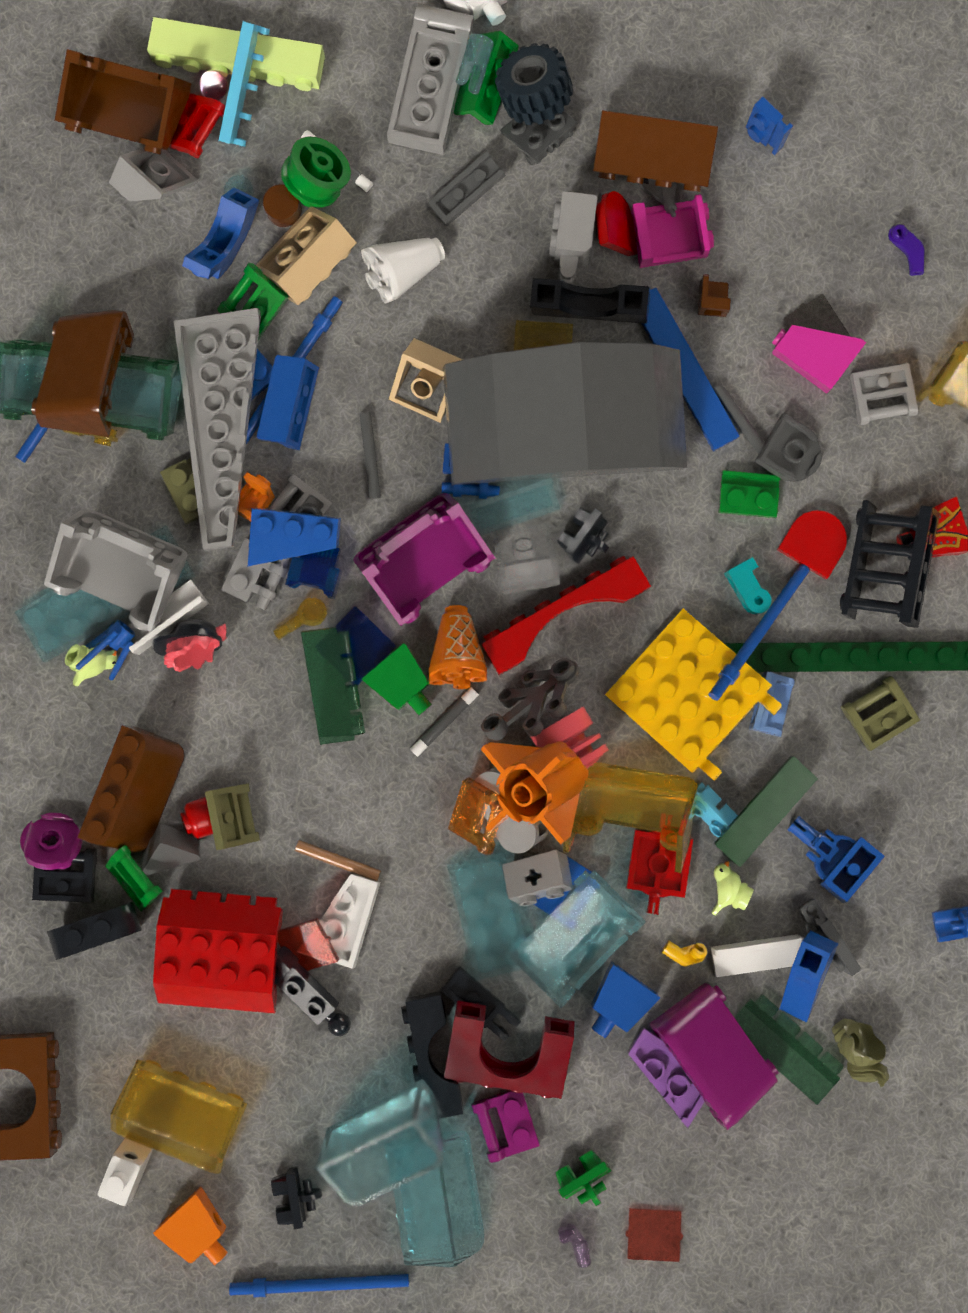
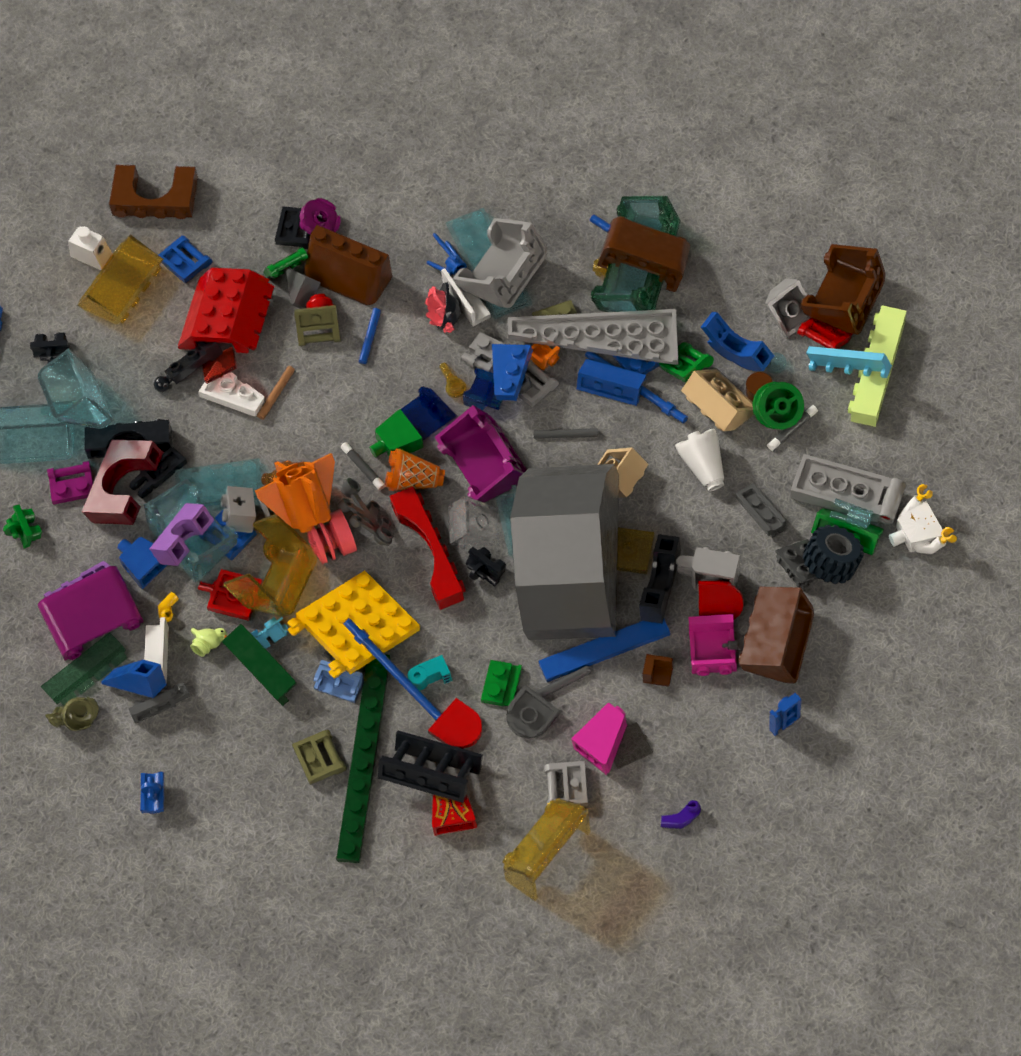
camera: 100 degrees right, 25 degrees down
(94, 931) = (254, 239): black brick -> none
(102, 661) = (437, 251): yellowish green animal -> none
(136, 1035) = (181, 264): none -> blue plate
(194, 1229) = (43, 288): orange torso -> none
(213, 85) = (856, 345): clear pink plate -> none
(236, 743) = (369, 336): none -> blue bar
(328, 686) = (402, 390): clear green windscreen -> none
(573, 943) = (170, 545): none -> medium lavender arch
(841, 862) = (214, 713): blue brick -> none

